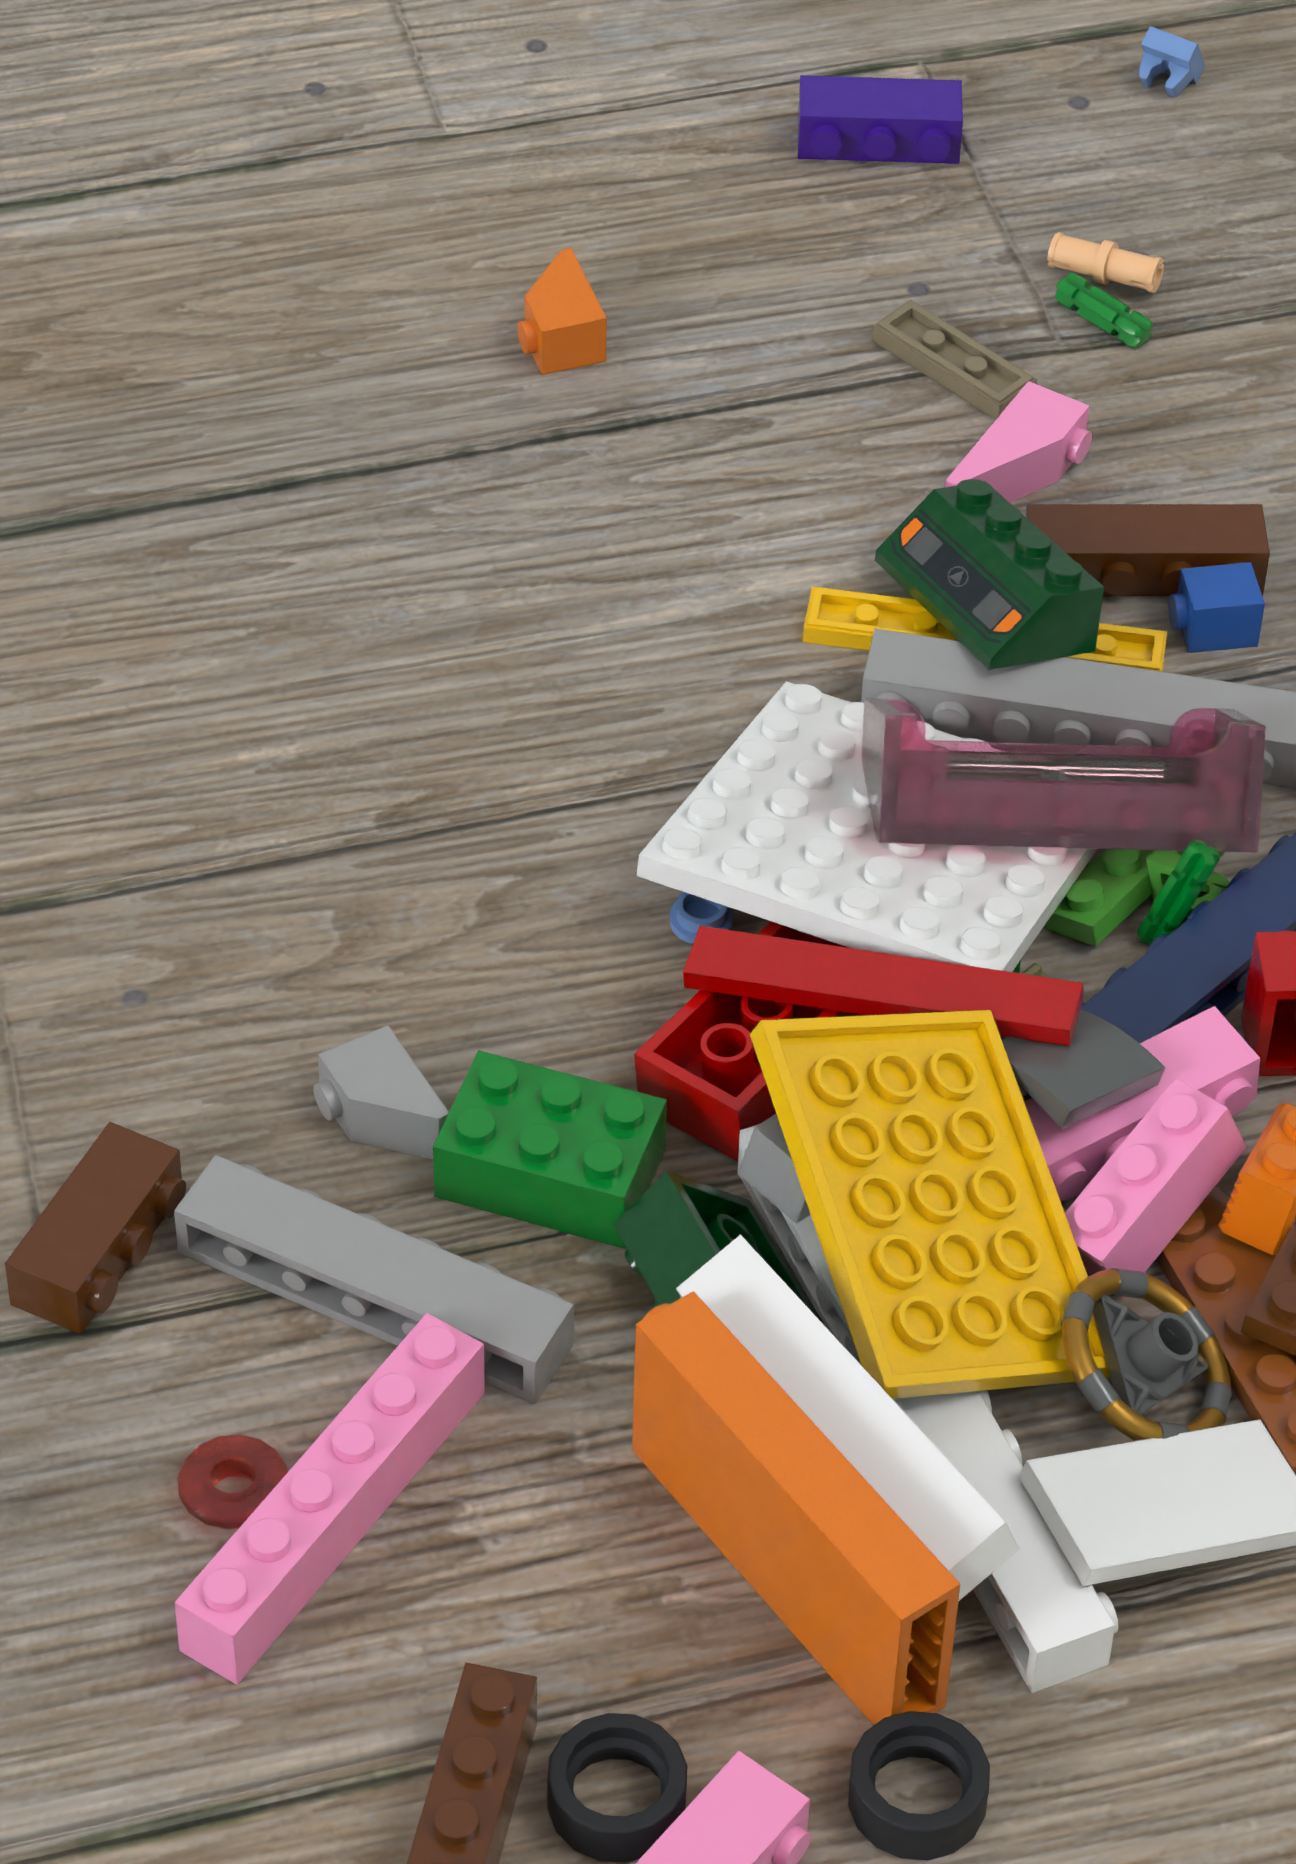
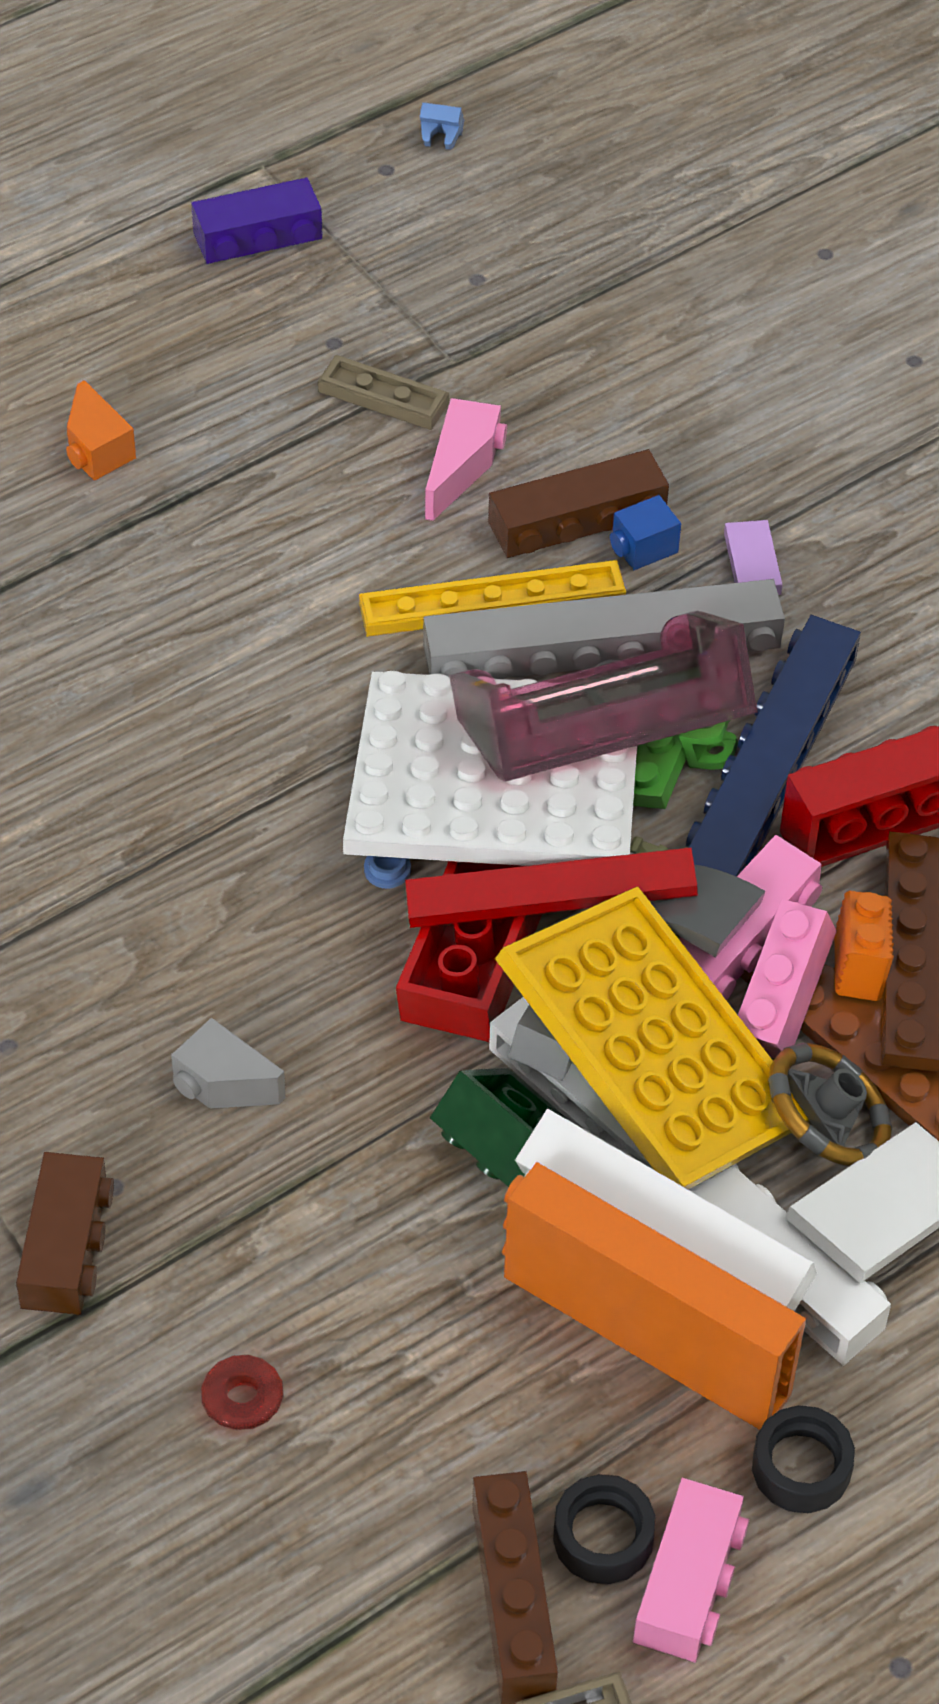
camera: 20 degrees left, 5 degrees up
(330, 1499) = (319, 1384): bright pink brick -> none
(370, 1273) = (276, 1208): light grey brick -> none
(548, 1147) = (359, 1074): green brick -> none
(993, 577) = (490, 555): dark green slope -> none
(1103, 310) = (472, 327): green axle -> none
(1105, 262) = (459, 290): light nougat pin -> none
(1179, 891) = (712, 757): green axle -> none

